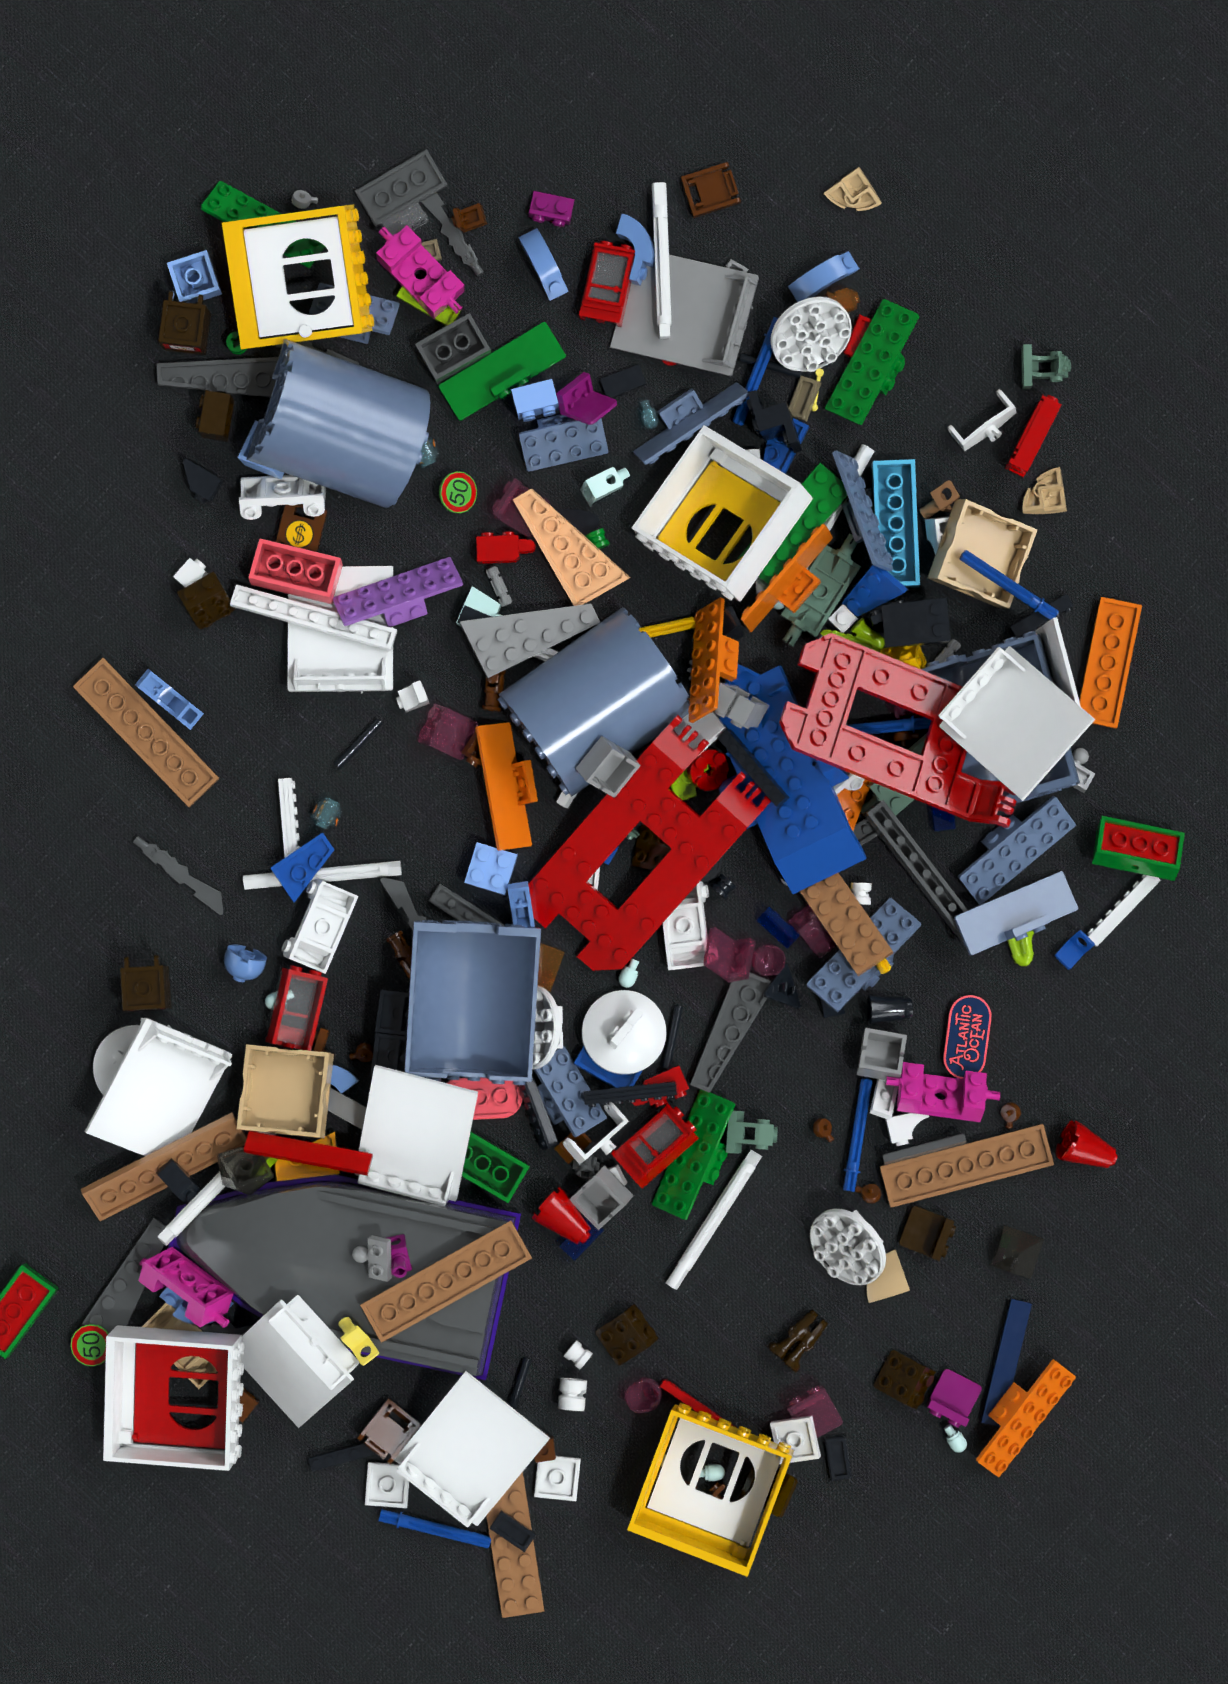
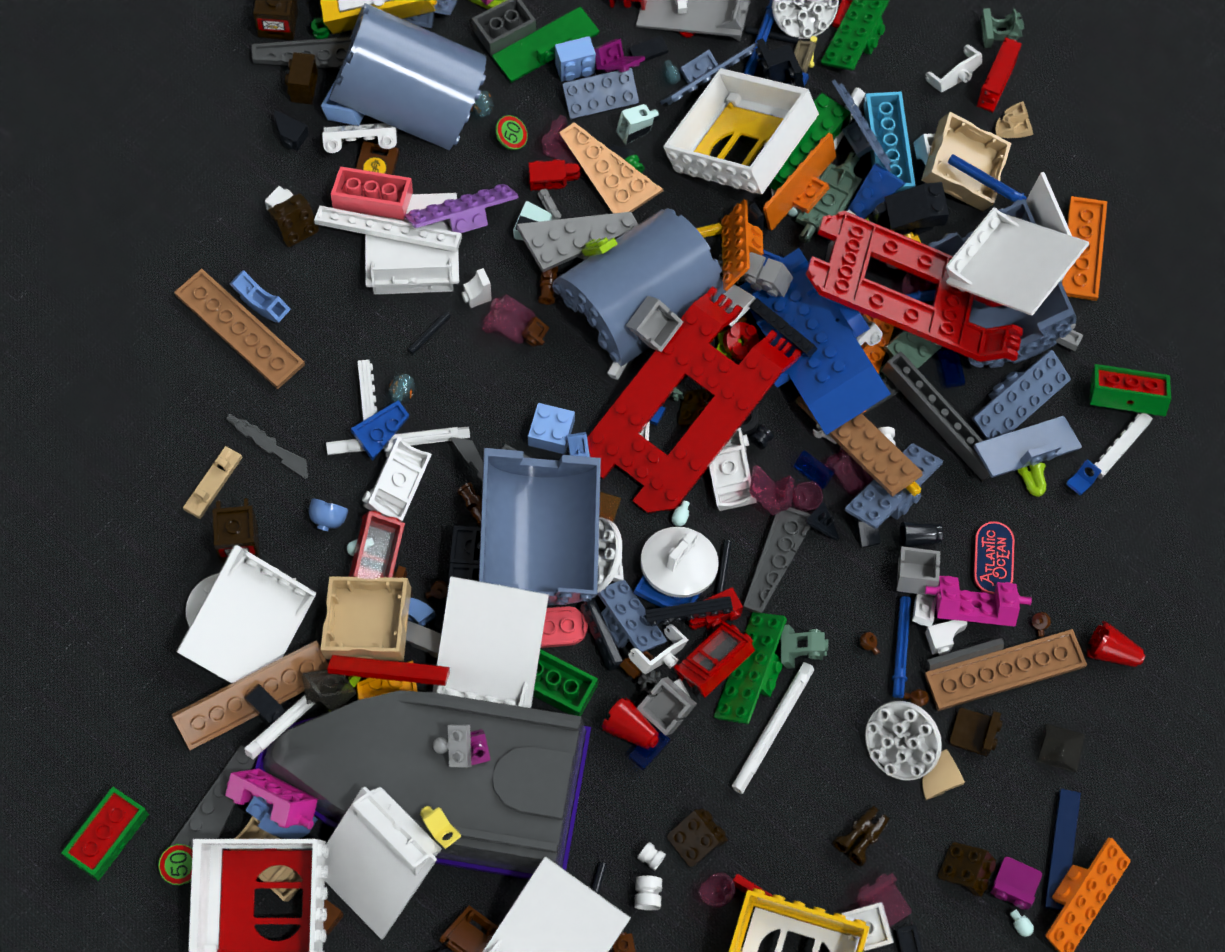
camera: 10 degrees left, 20 degrees down
(119, 916) = (212, 482): none -> tan hinge
(446, 1281) = (523, 767): medium nougat plate -> none
(508, 785) = (564, 359): orange bracket -> none
(551, 661) = (598, 246): none -> lime plate
(940, 501) = (925, 124): medium nougat bracket -> none

